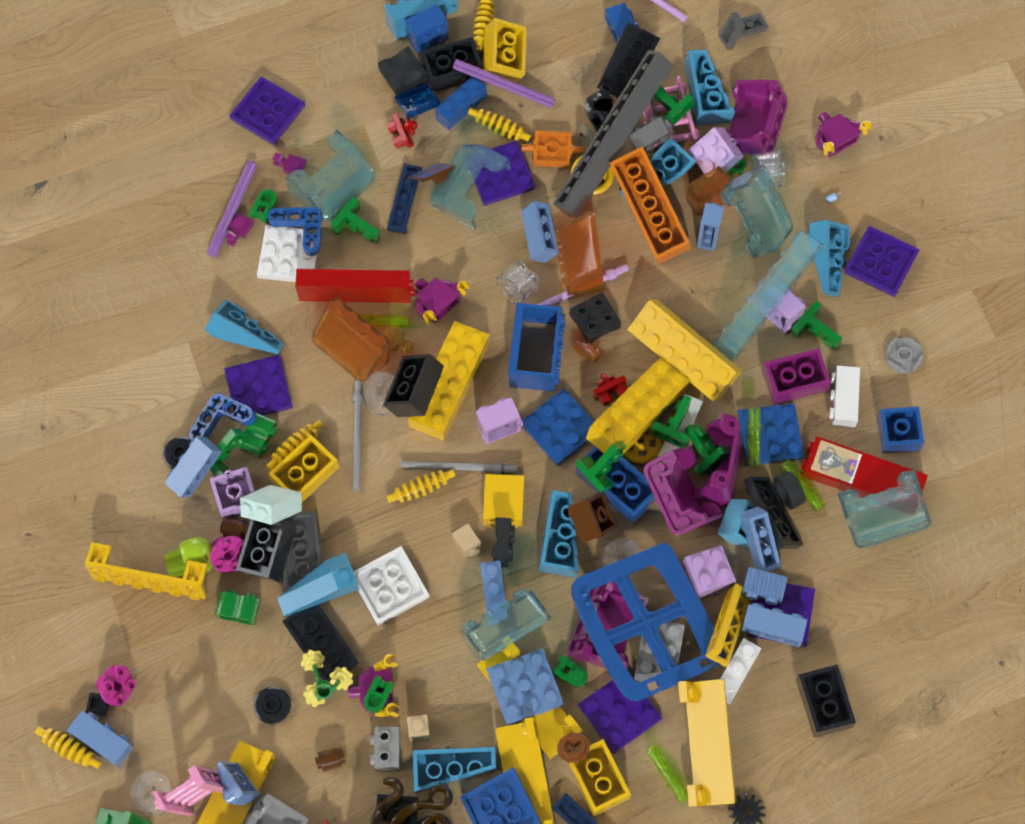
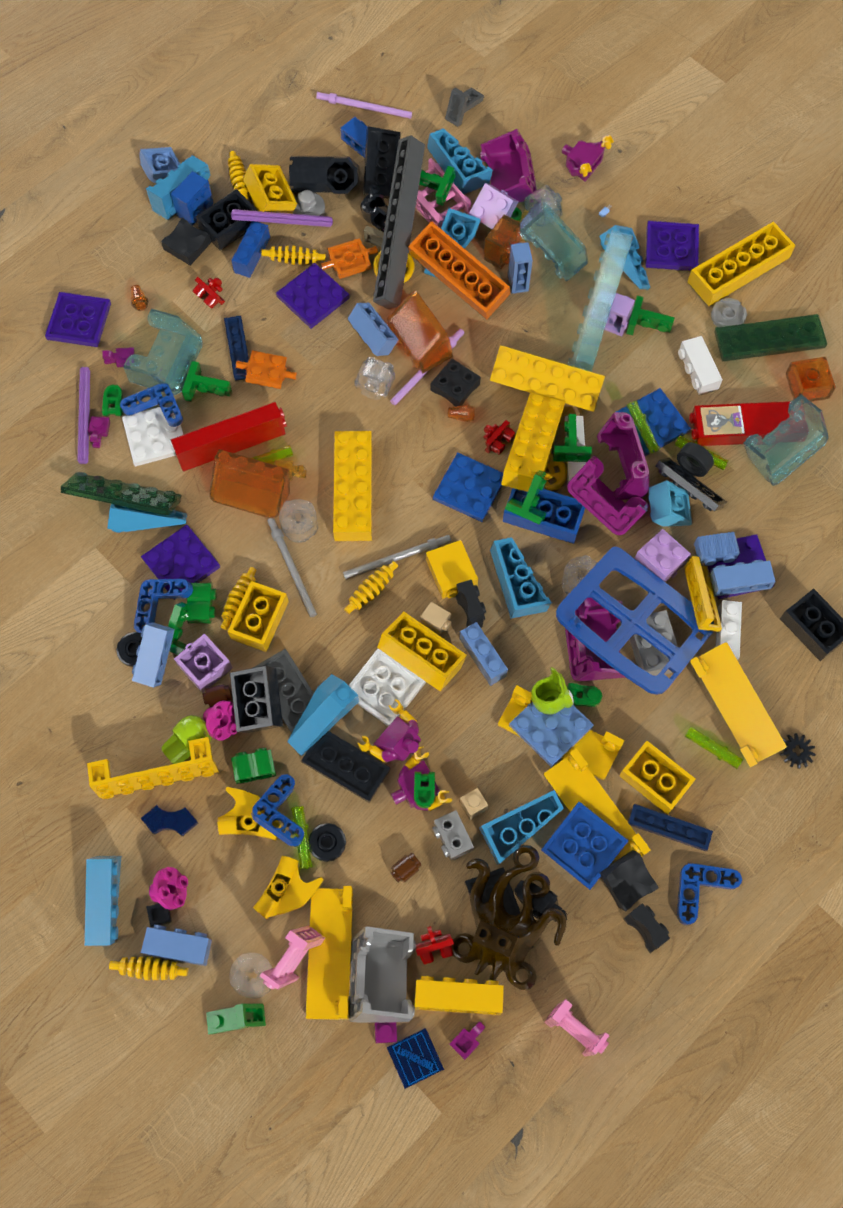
camera: 25 degrees left, 0 degrees up
(54, 669) = (102, 900): none -> dark azure wedge
(151, 629) = (178, 821): none -> clear blue tile
(216, 644) = (235, 820): none -> yellow pin
(221, 737) = (294, 892): none -> yellow pin
(232, 301) = (121, 493): none -> clear green plate
(235, 652) = (271, 809): none -> blue beam
(236, 784) = (330, 931): medium blue slope -> none
(251, 692) = (304, 848): none -> clear neon green pin
(271, 504) = (244, 657): light aqua brick -> none
(322, 688) = (374, 804): light yellow plant -> none
(332, 111) = (138, 298): none -> clear orange cone
(376, 639) = (398, 738): none -> magenta torso
(413, 385) = (326, 499): black brick -> none
(417, 101) = (211, 261): clear blue tile -> none
(420, 232) = (266, 369): none -> orange plate
(437, 173) = (261, 311): reddish brown piece -> none
(437, 566) = (421, 651): none -> yellow brick
(438, 298) = (309, 418): magenta torso -> none
(450, 195) = (279, 323): clear light blue windscreen -> none
(498, 420) = (415, 501): lavender brick -> none
(504, 625) = (511, 678): clear light blue windscreen -> none
(534, 658) = (551, 694): none -> lime piece
(536, 314) = (412, 396): blue hose -> none
(538, 78) = (309, 204): none -> light grey plate
(565, 52) = (323, 174): none -> black brick
(574, 740) = (622, 752): dark orange gear -> none
(592, 517) = (540, 550): reddish brown brick -> none
(618, 718) = (643, 714): dark purple plate -> none
(656, 131) = (436, 205): dark grey brick -> none
(711, 455) = (610, 454): green bracket -> none
(760, 539) = (694, 509): medium blue brick -> none
(796, 376) = (651, 364): magenta brick -> none
(900, 429) = (760, 373): blue brick -> none
(933, 396) = (770, 337): none -> clear green plate
(940, 308) = (741, 263): none -> yellow brick
(947, 457) = (811, 379): none -> clear orange brick

